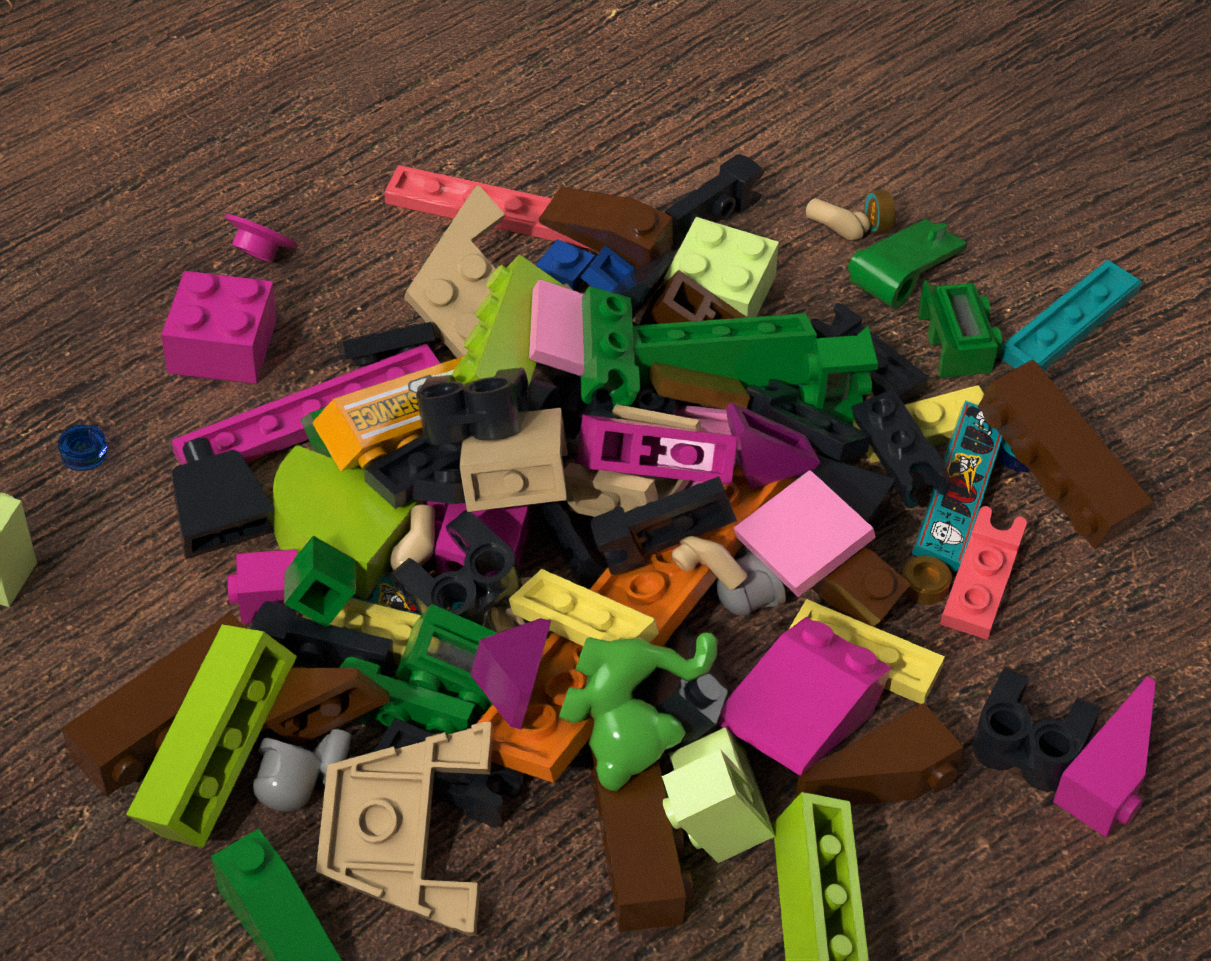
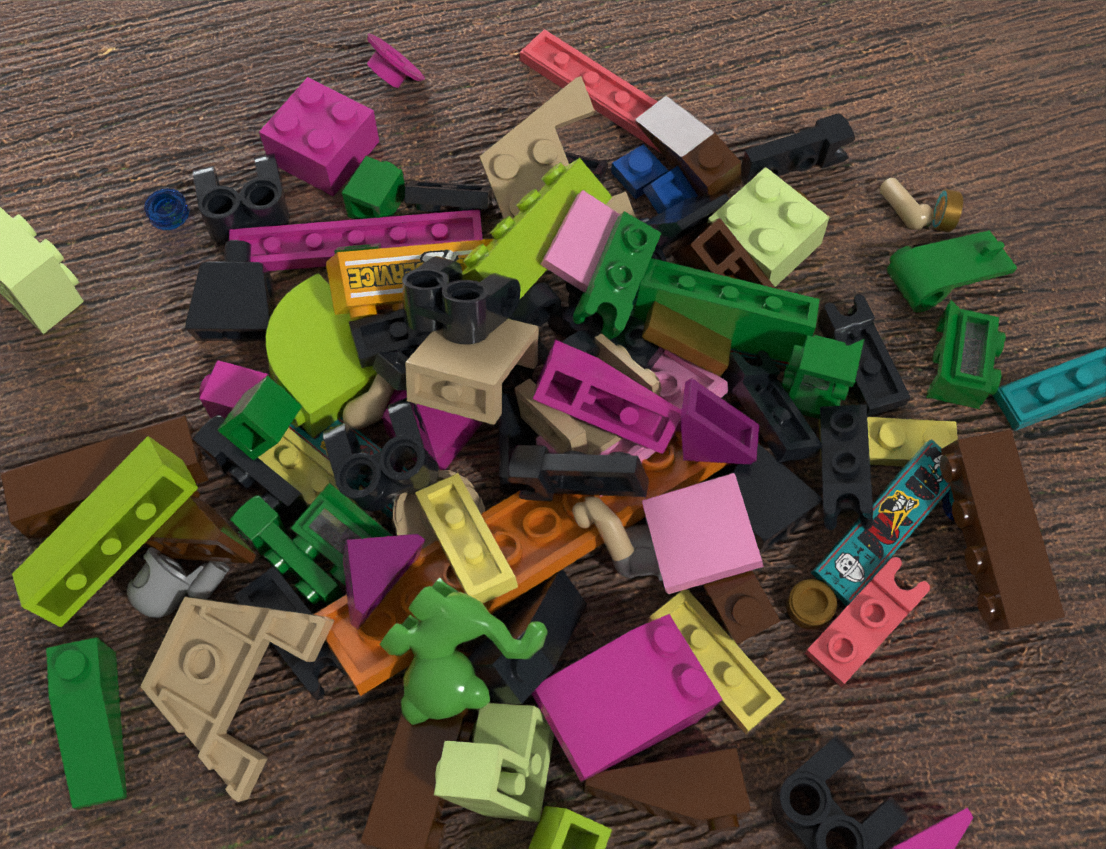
camera: 25 degrees right, 15 degrees up
(155, 421) = (257, 205): none -> black piece
(305, 358) = (374, 190): none -> green brick

